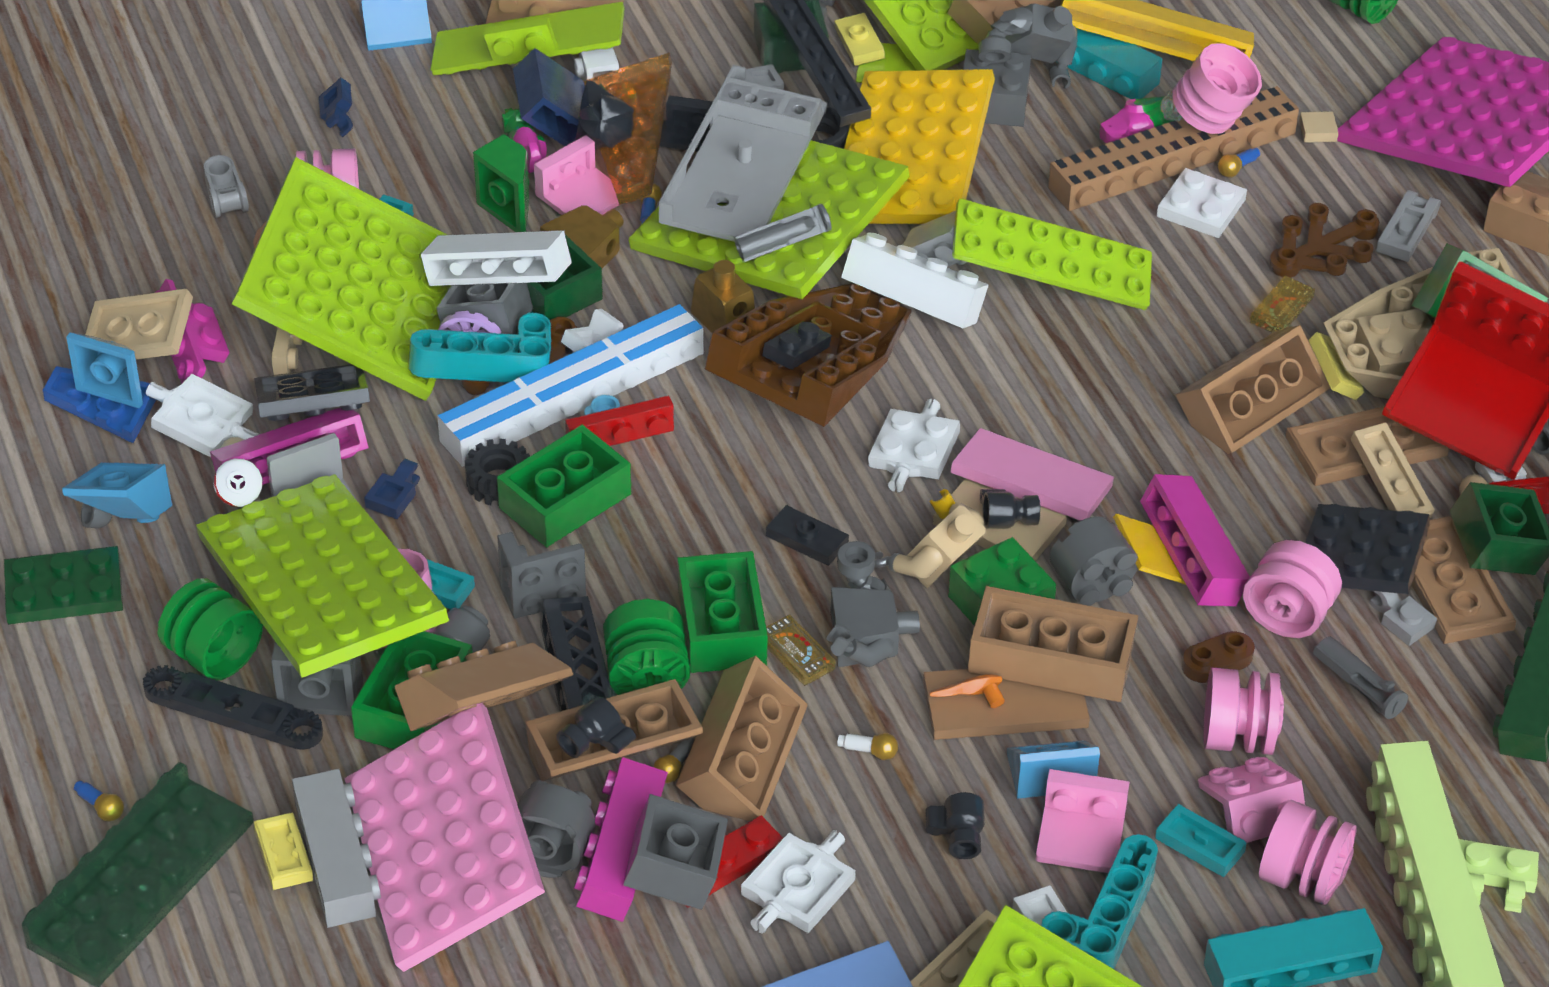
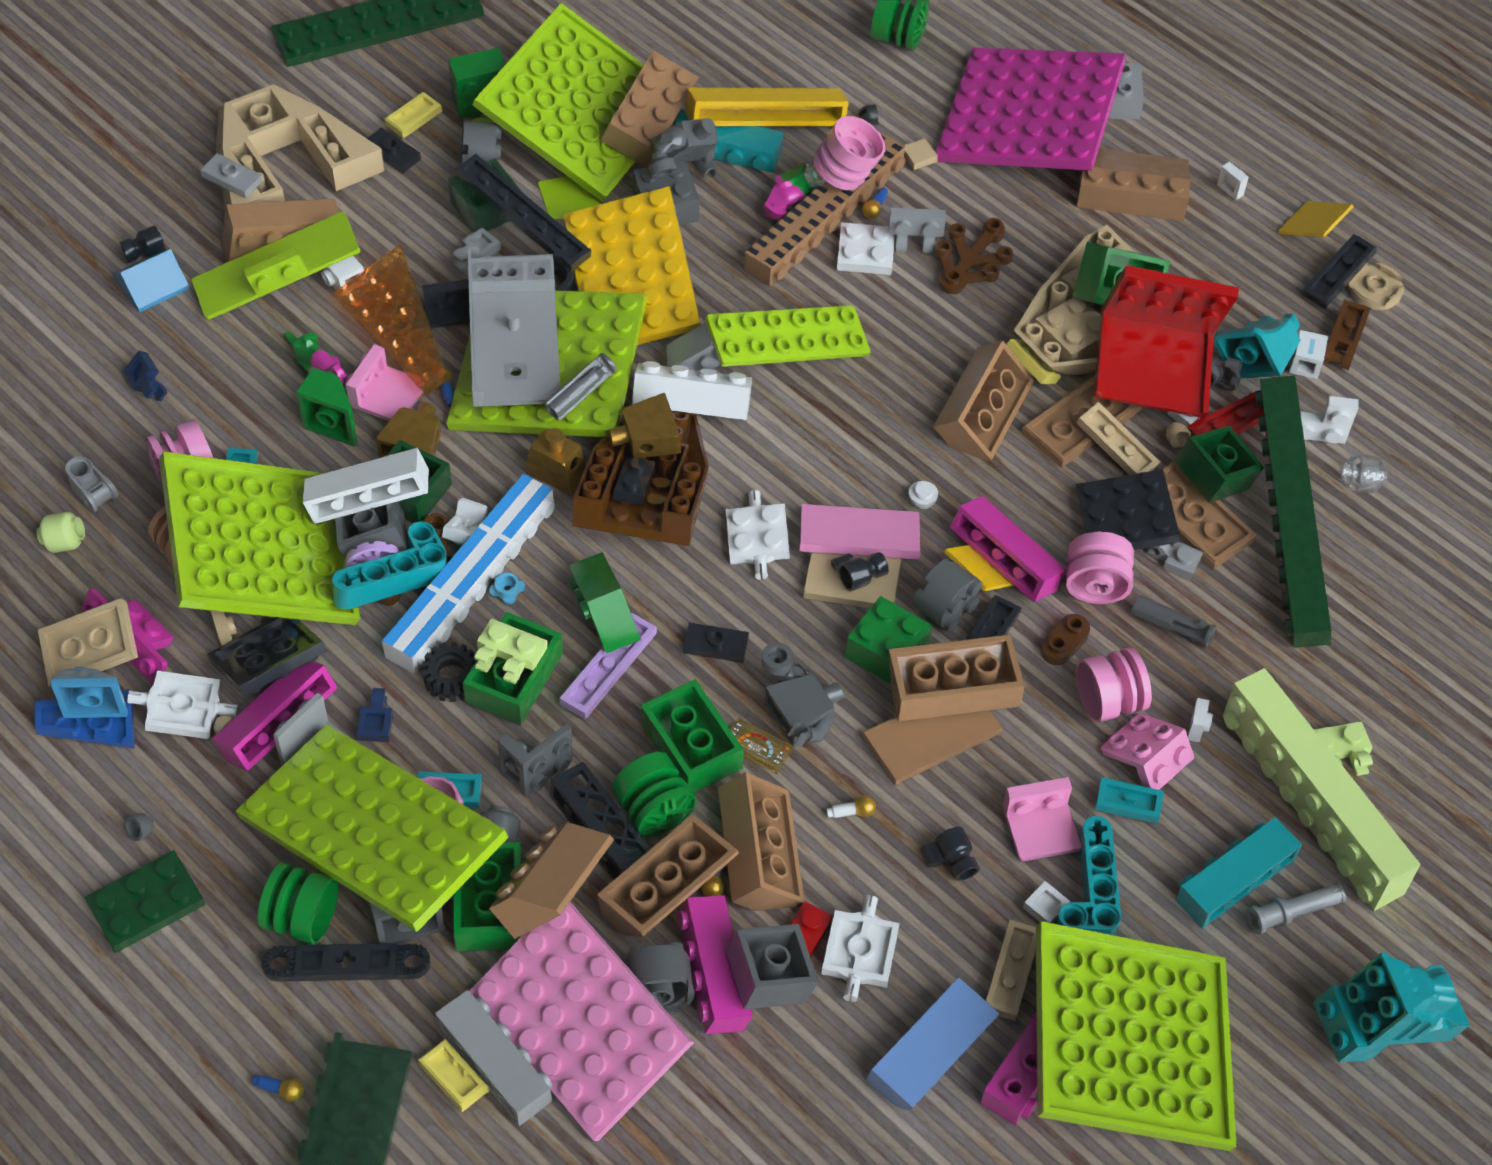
camera: 25 degrees left, 10 degrees up
(124, 490) = (156, 798): dark azure slope -> none
(170, 222) = (61, 532): none -> yellowish green head
(238, 497) = (246, 760): white head -> none
(549, 96) = (326, 316): dark blue brick -> none
(566, 455) = (509, 643): none -> yellowish green plate
(598, 724) = (662, 880): black piece -> none
(604, 117) = (380, 323): black hair -> none
(628, 421) = (530, 593): red plate -> none
(672, 519) = (604, 672): none -> lavender plate
(694, 447) = (603, 602): none -> green wedge
(838, 297) = (648, 428): none -> pearl gold torso
(859, 39) = (536, 181): light yellow plate -> none
(942, 545) = (830, 618): tan torso -> none
(974, 686) = (918, 727): orange bar -> none
(1032, 764) = (991, 775): dark azure slope -> none
(1129, 462) = (923, 494): none -> white plate
(1151, 605) = (995, 619): none -> black plate
(1267, 185) = (916, 223): none -> light grey plate
(1277, 72) = (870, 114): none -> pearl dark grey hinge
(1282, 305) = (967, 320): clear yellow tile -> none
(1311, 853) = (1219, 786): bright pink wheel -> none
(1332, 785) = (1200, 720): none -> white plate
(1407, 226) = (1025, 221): light grey plate -> none

